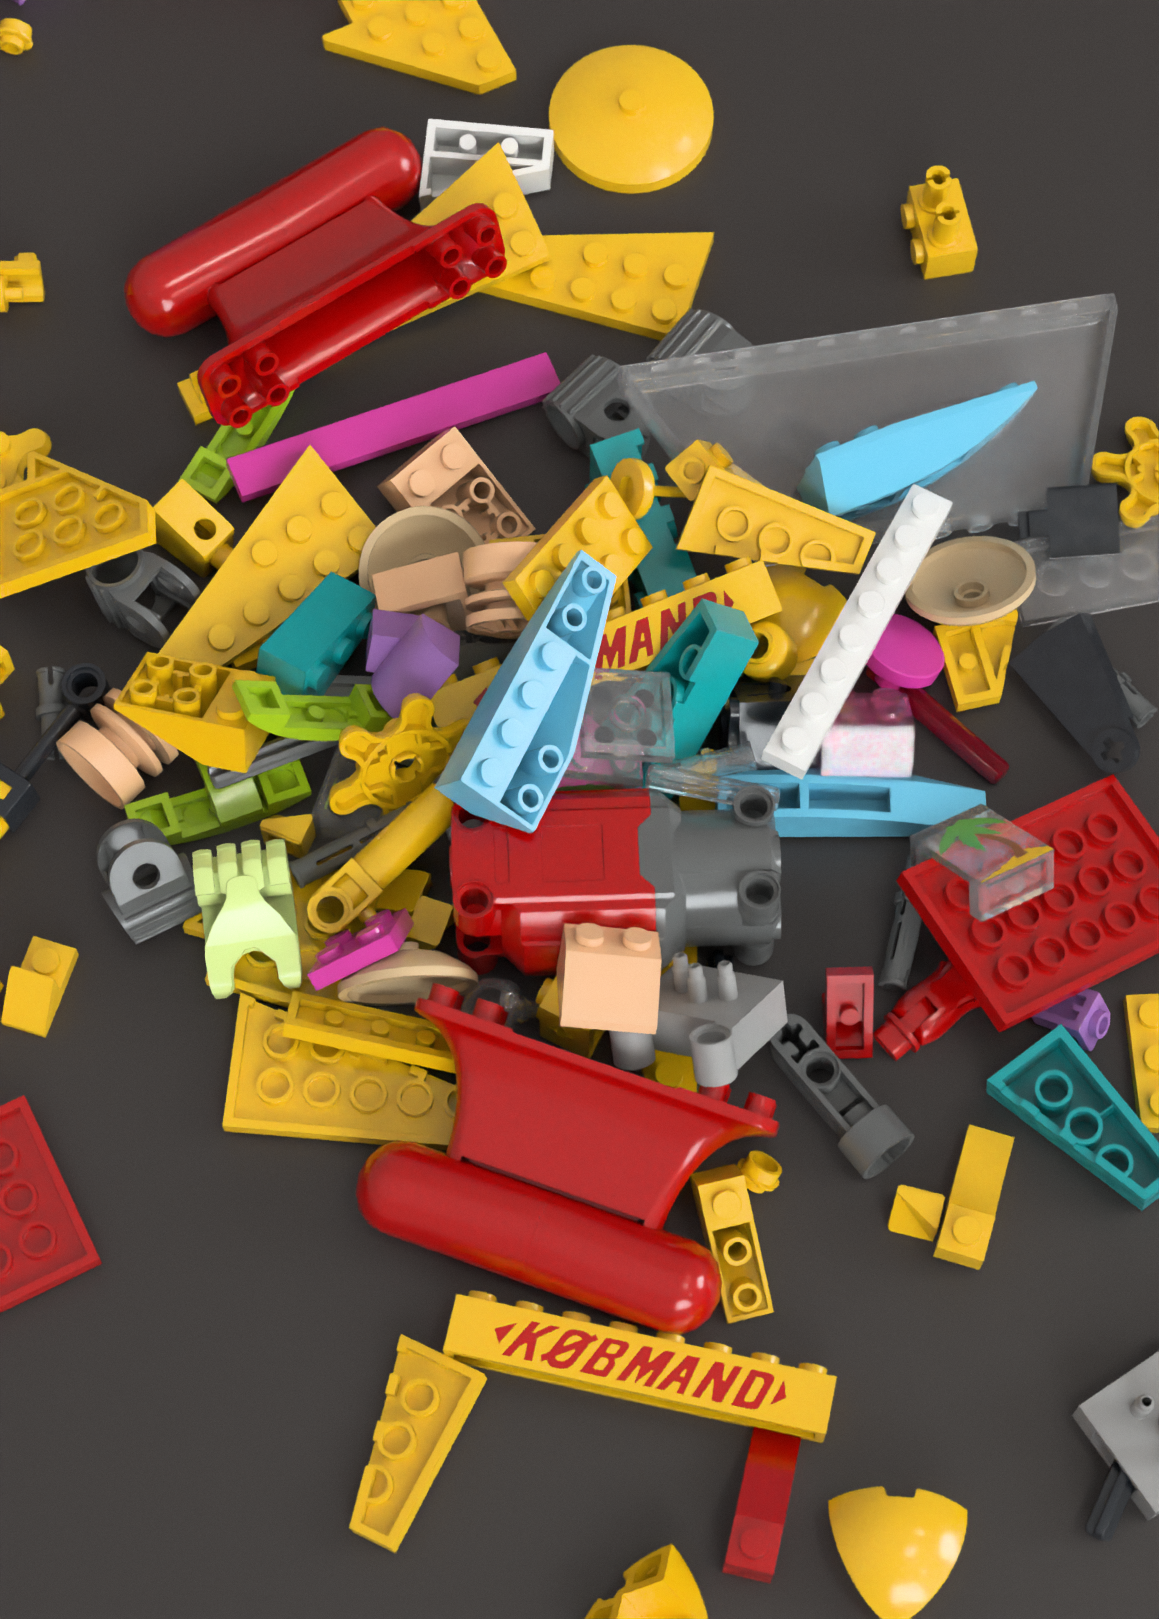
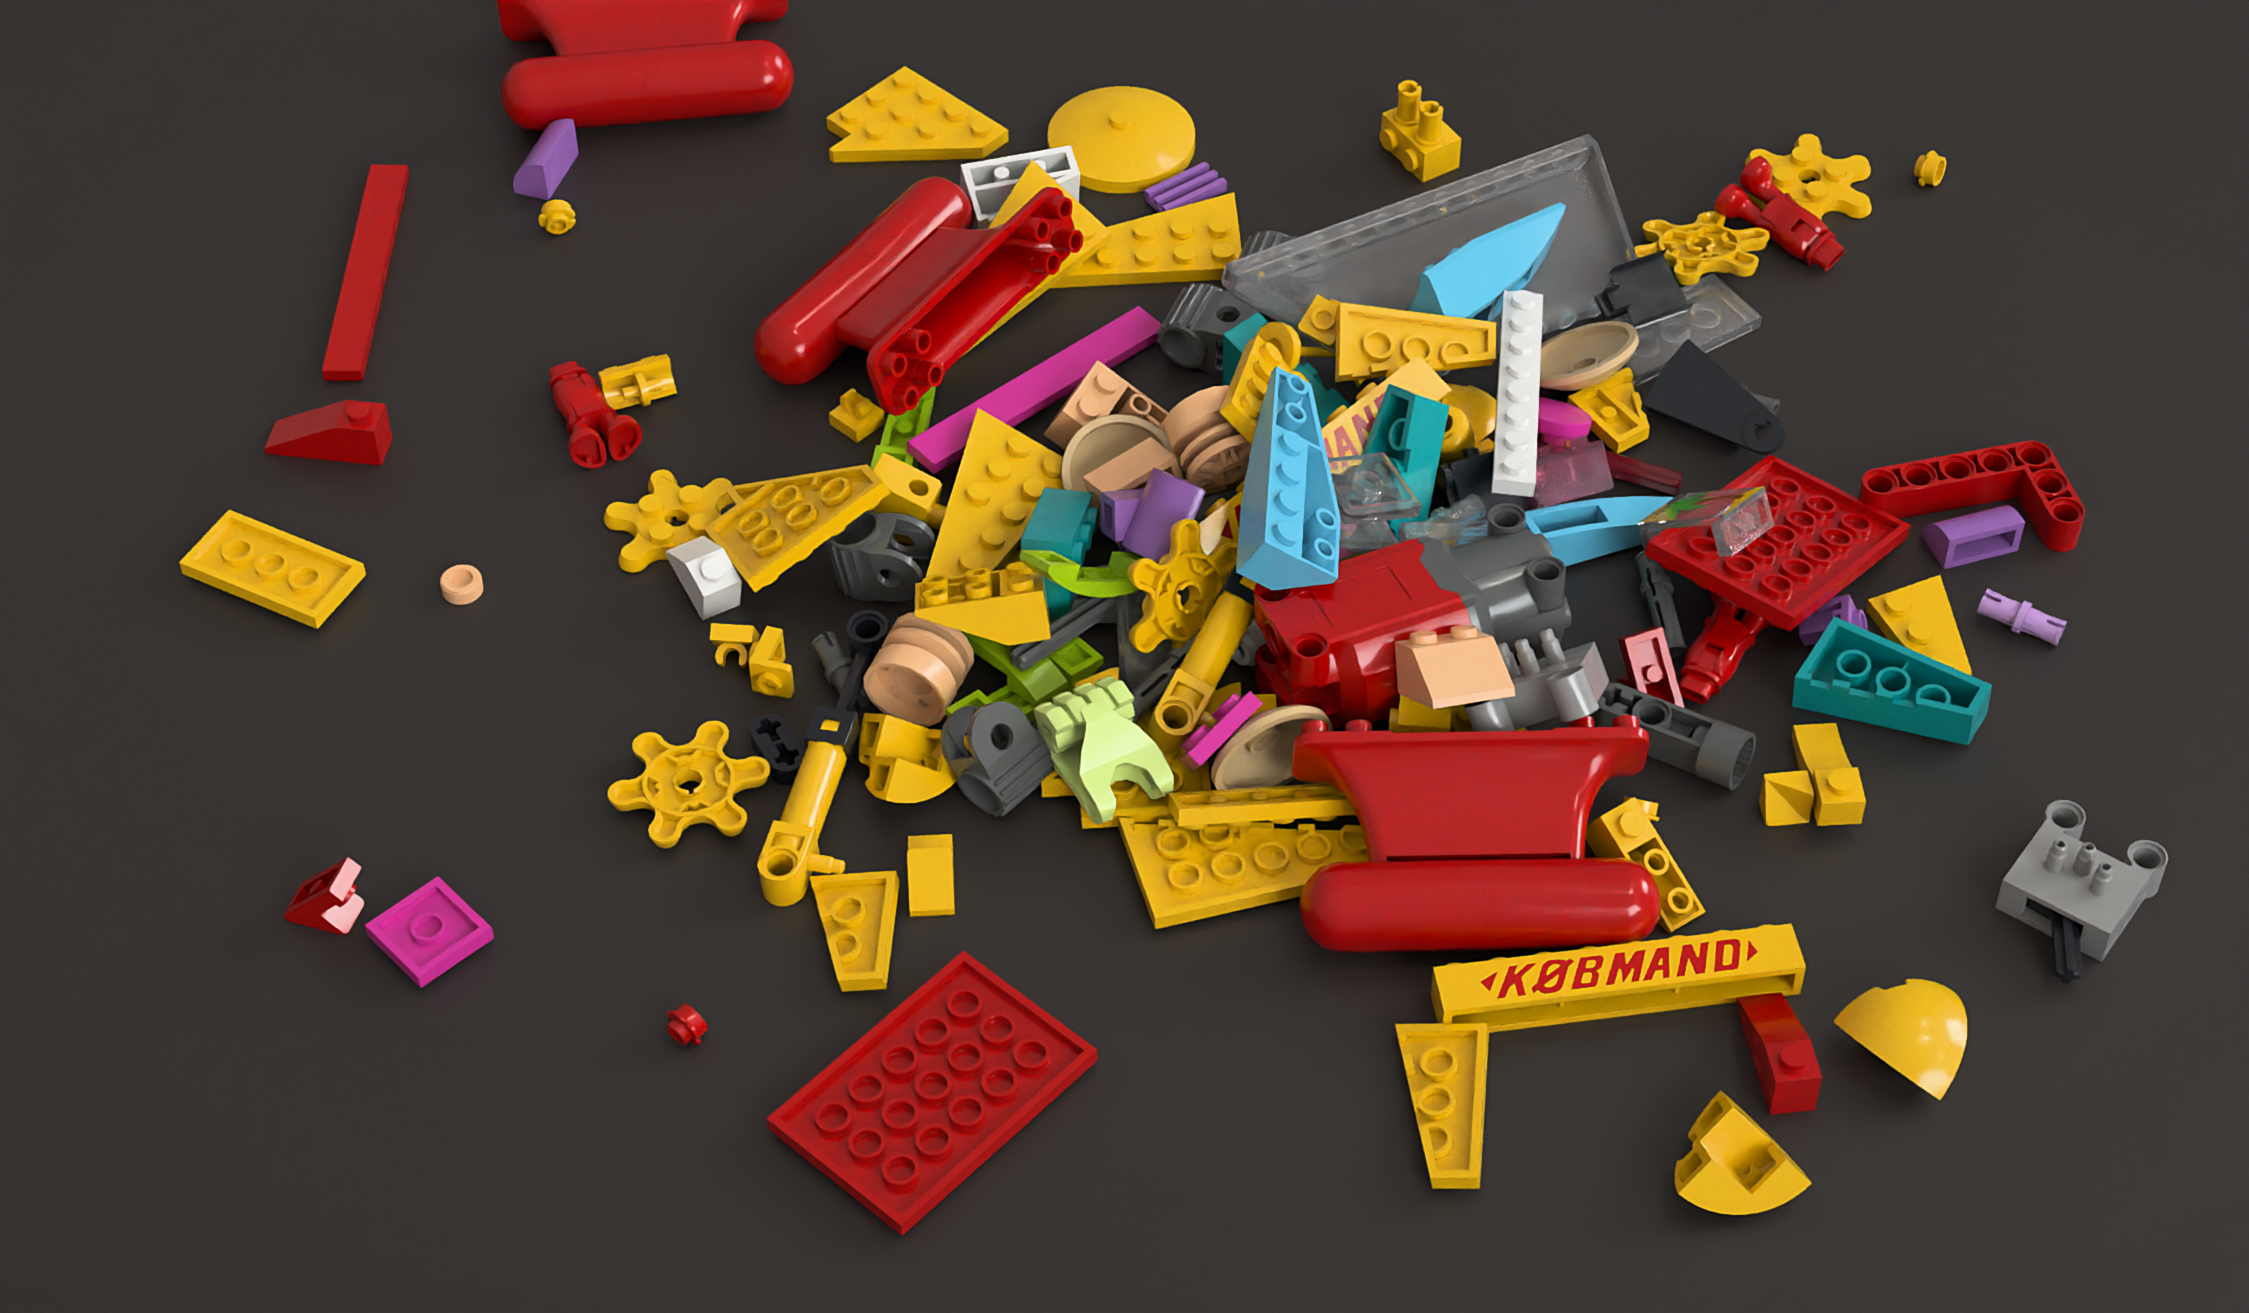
camera: 20 degrees left, 20 degrees down
(62, 846) = (903, 759): none -> yellow brick
(665, 204) = (1181, 187): none -> medium lavender tile

